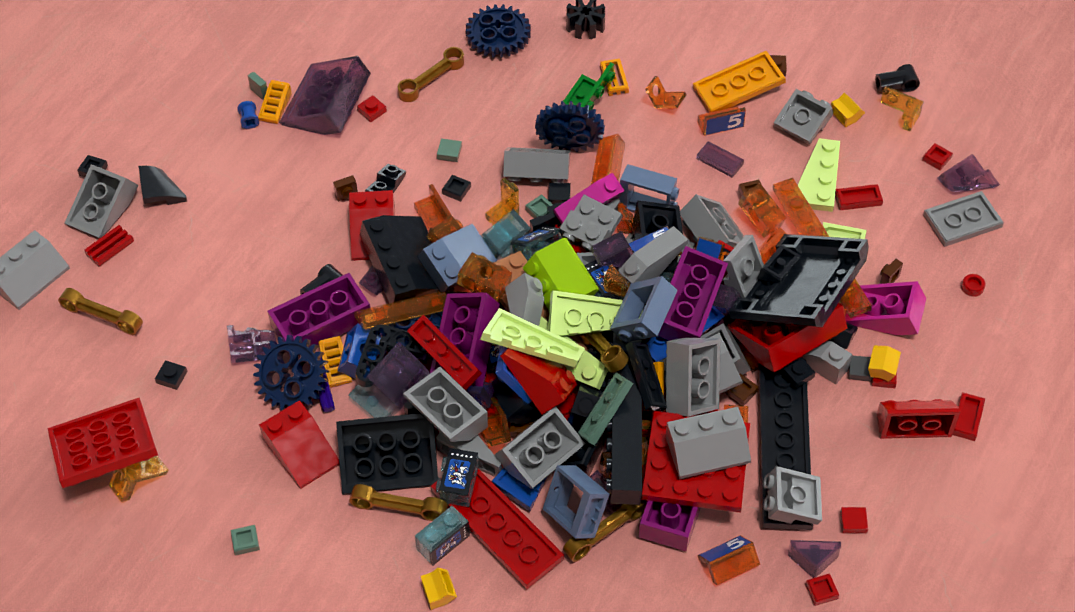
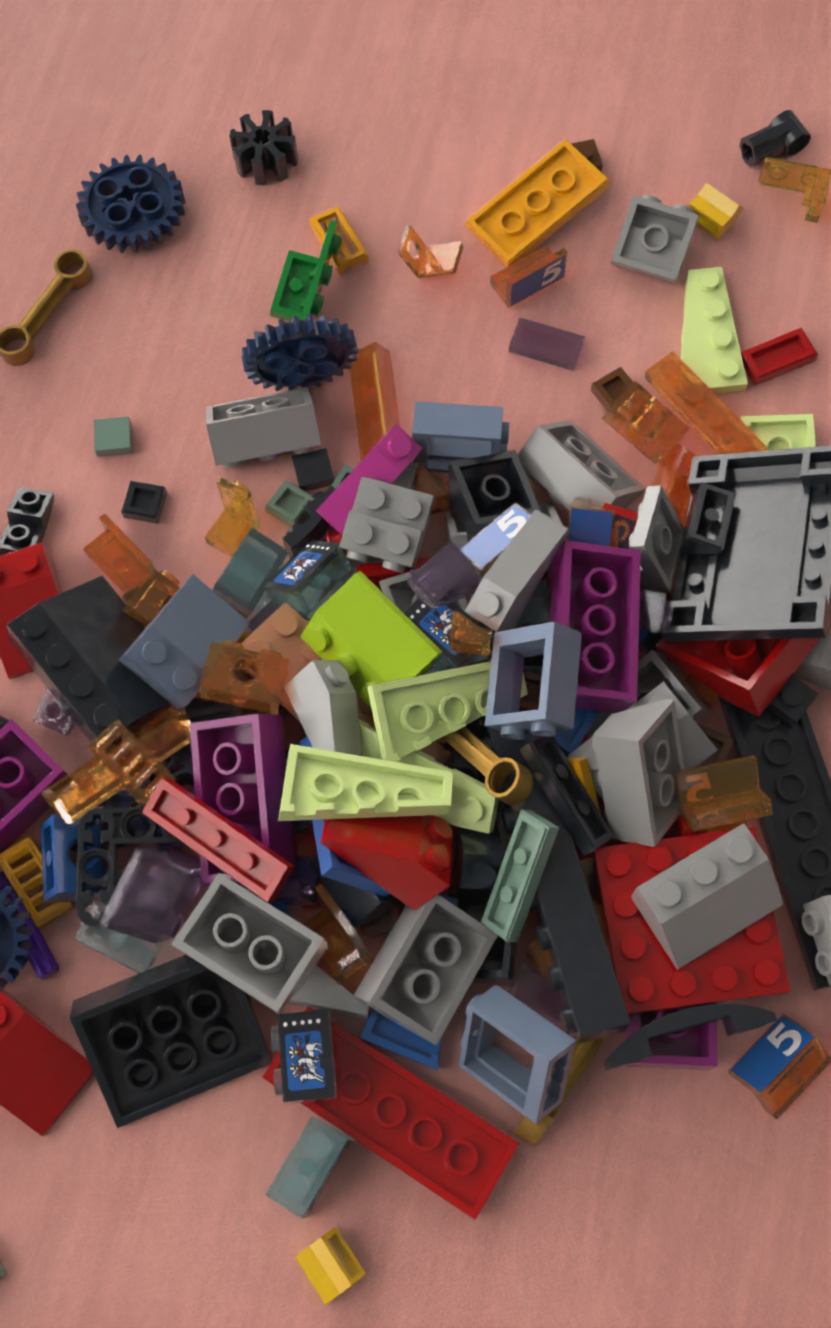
camera: 15 degrees left, 15 degrees up
(366, 497) = (216, 1124): pearl gold piece -> none
(415, 302) = (121, 773): none -> clear orange slope
(679, 505) = (734, 1016): none -> black slope
(733, 395) = (721, 793): none -> clear orange panel

